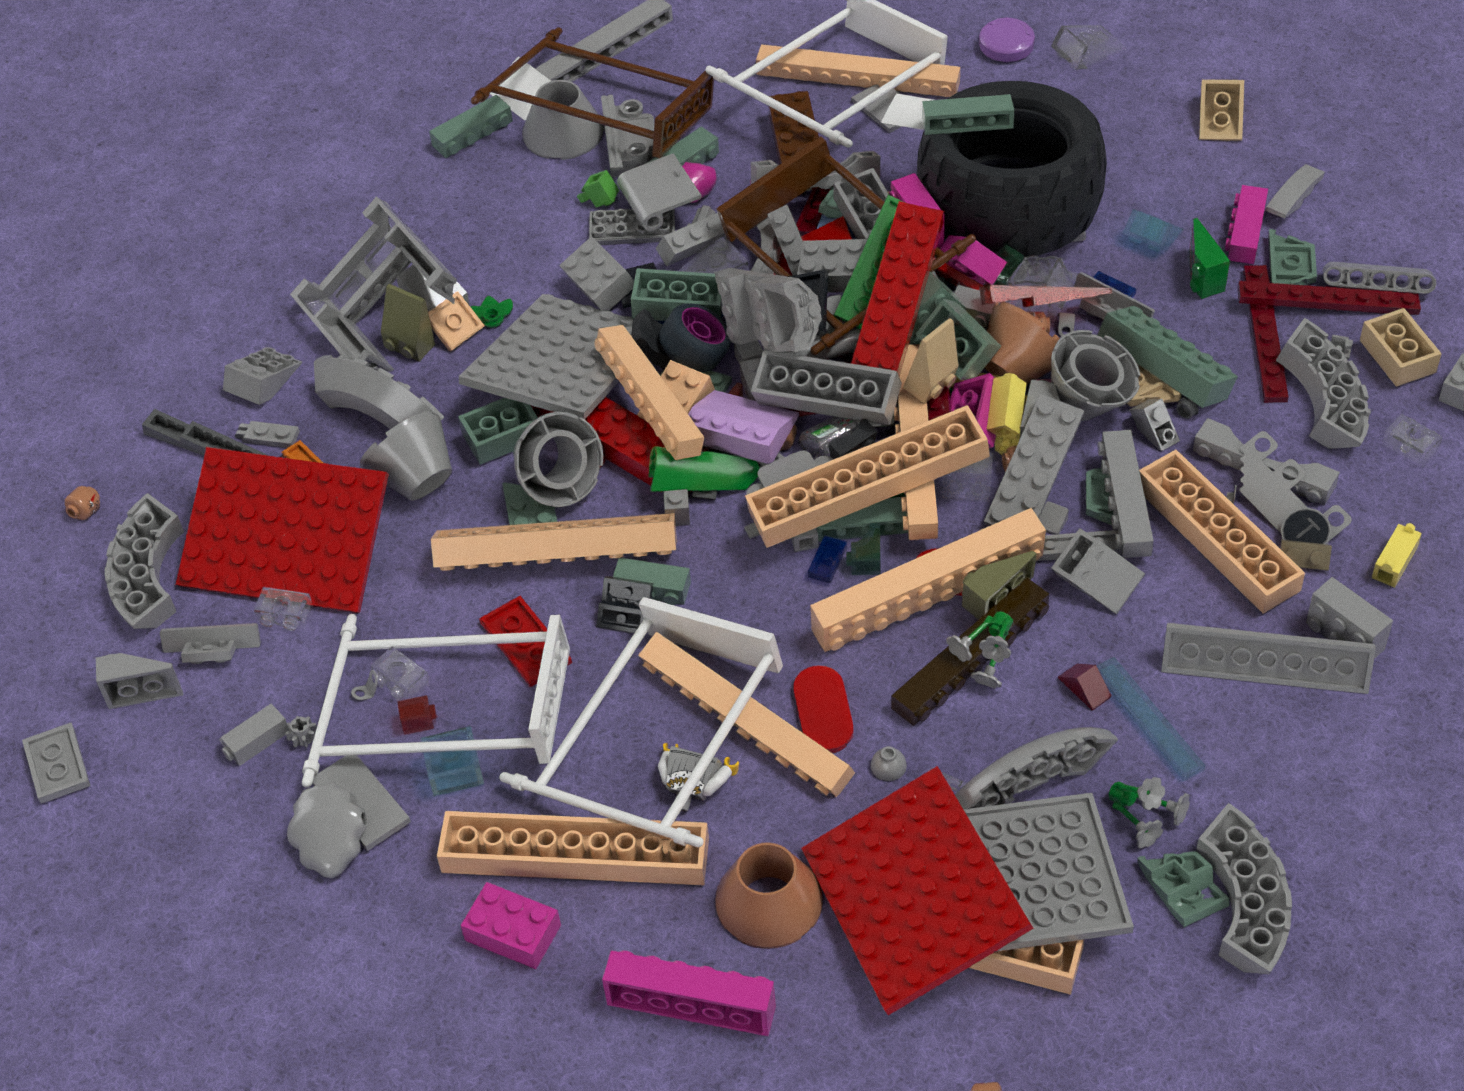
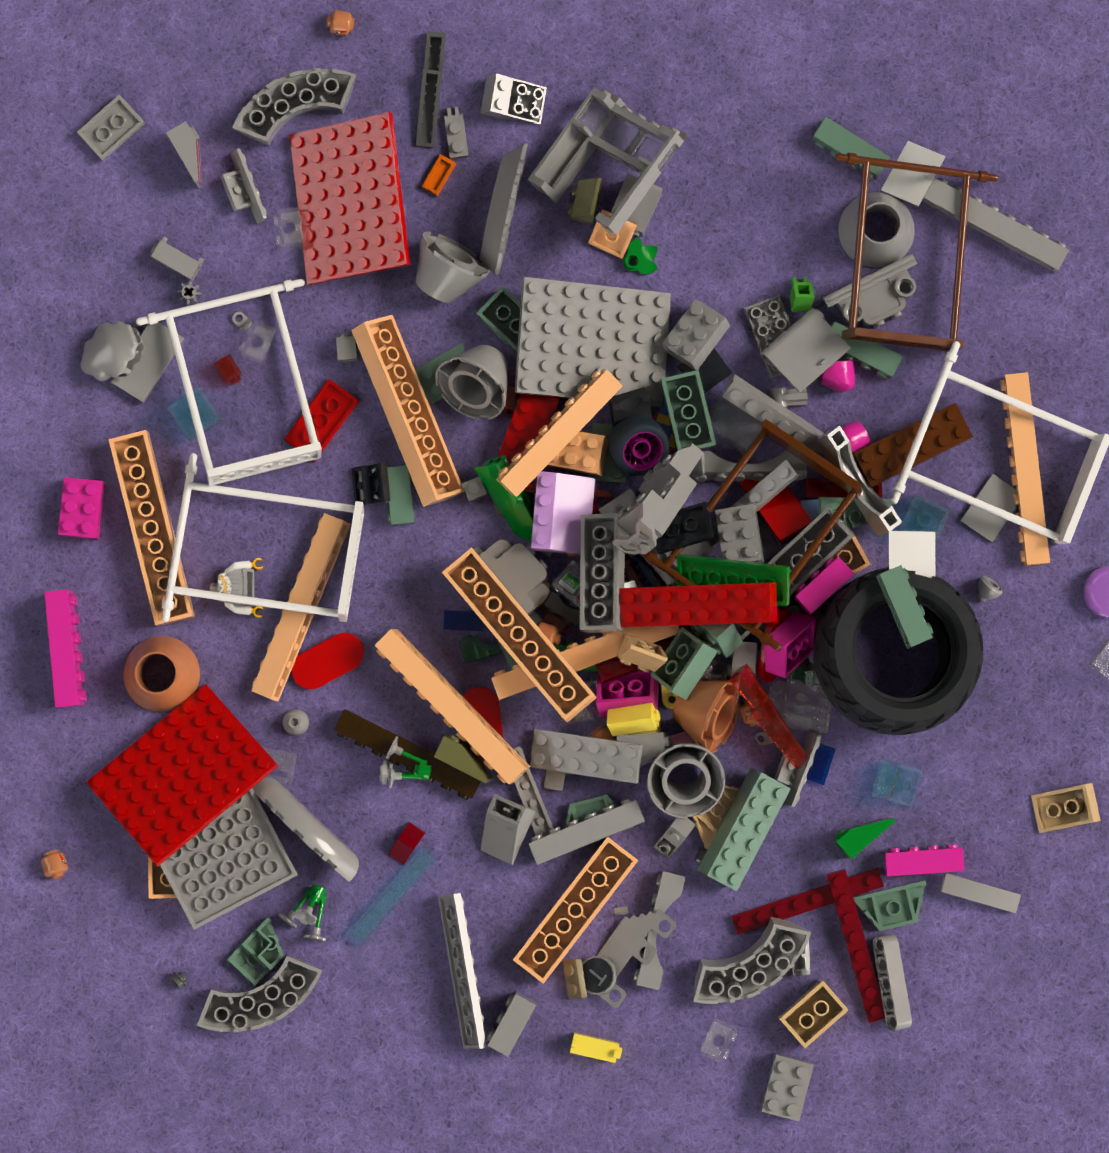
camera: 70 degrees right, 35 degrees up
(453, 589) = (346, 348): none -> light grey brick
(882, 140) = (924, 516): none -> clear light blue brick
(1197, 989) = (179, 979): none -> dark grey plate

